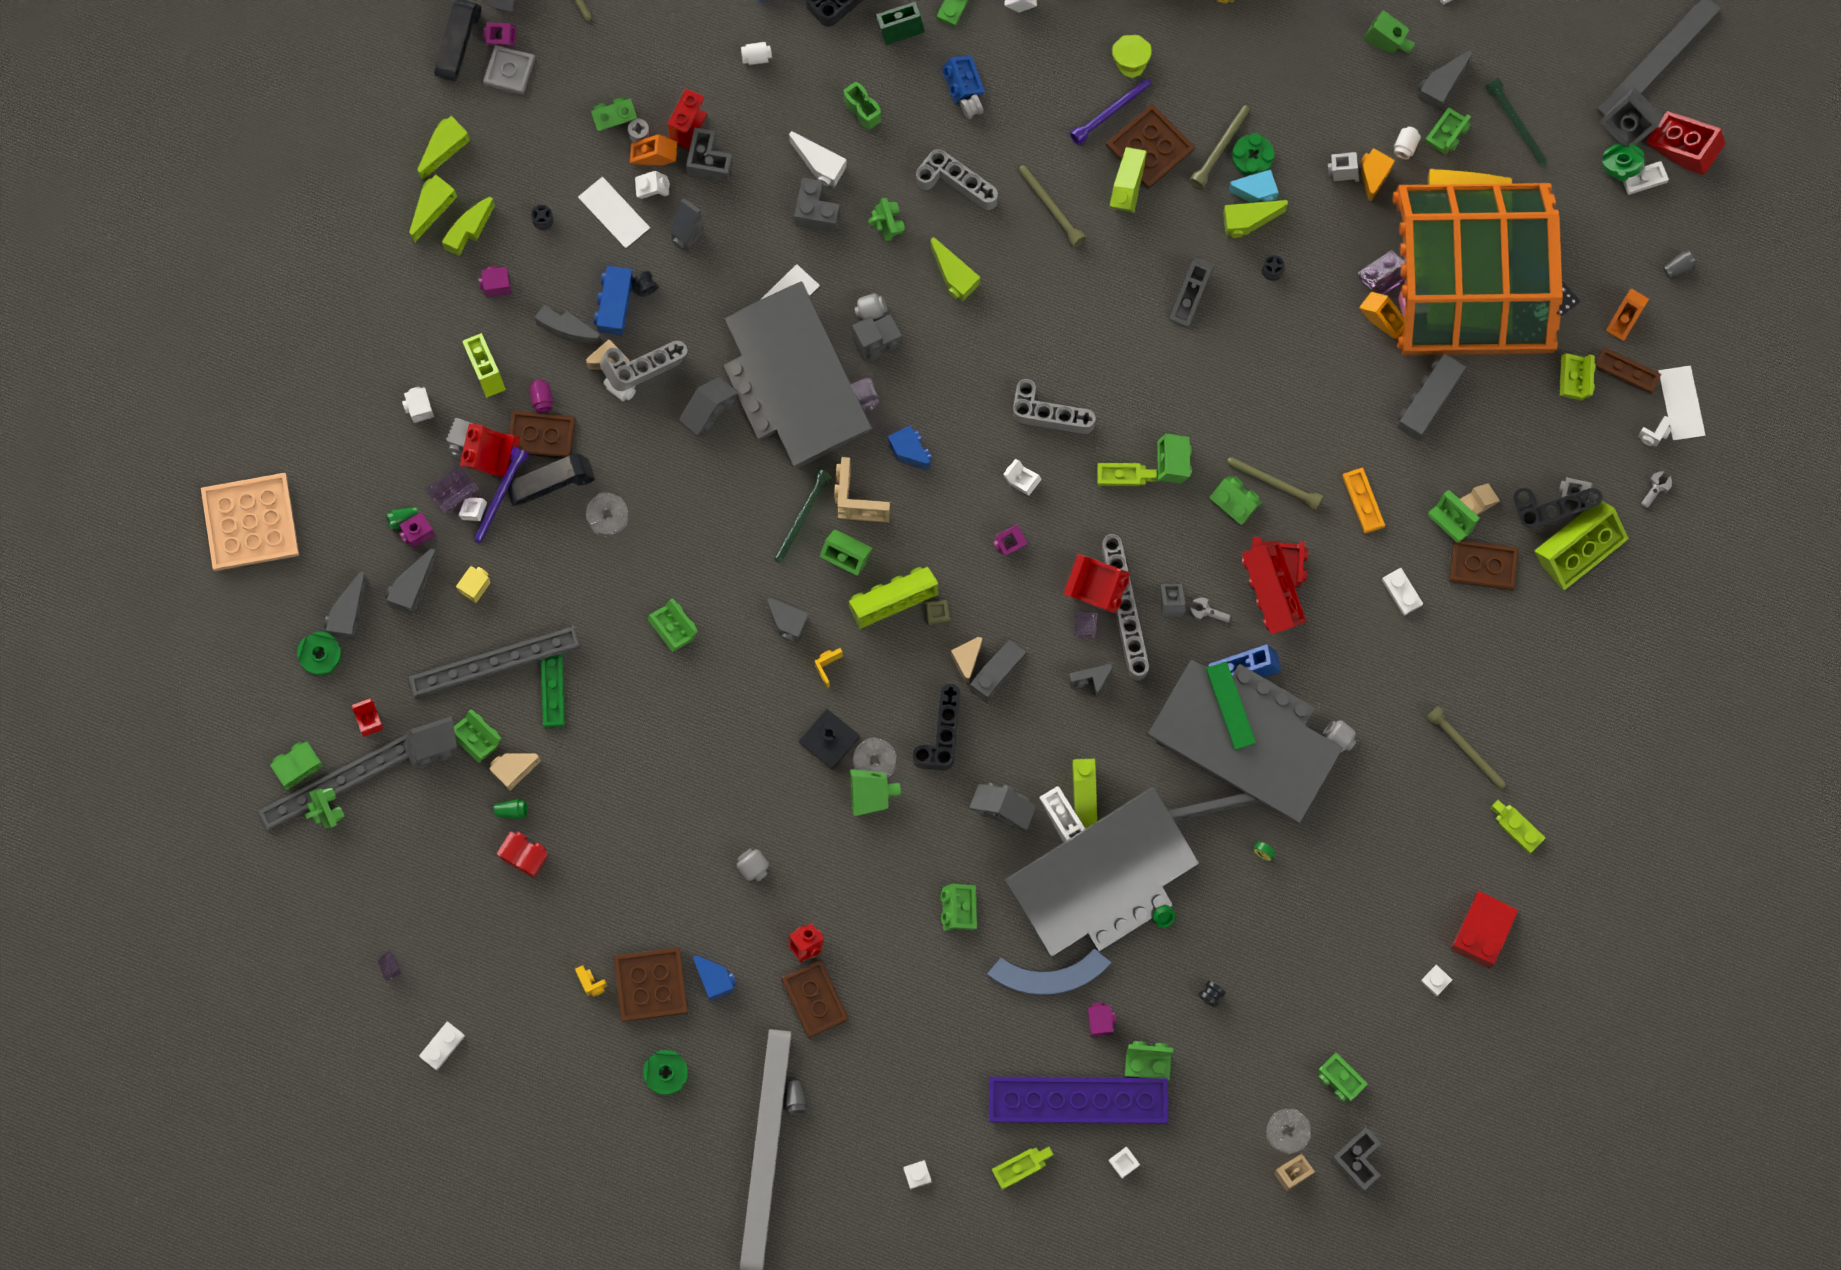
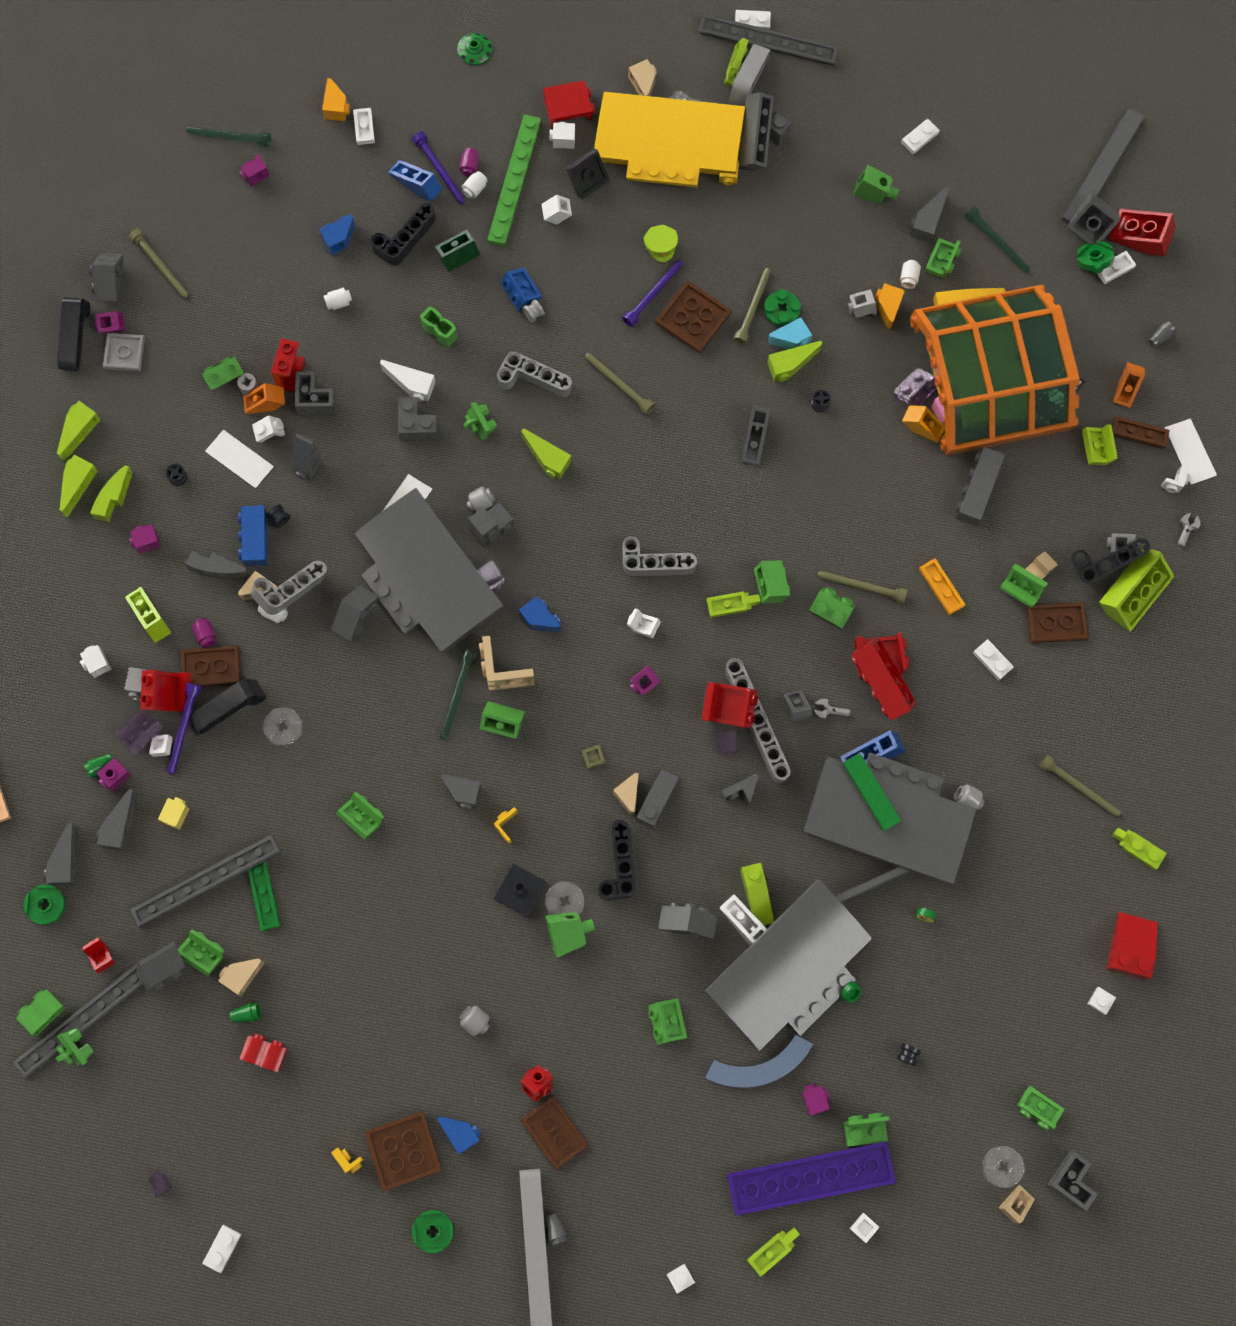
camera: 15 degrees left, 0 degrees up
(893, 597) = (552, 751): lime slope -> none
(1128, 180) = (681, 349): lime slope -> none

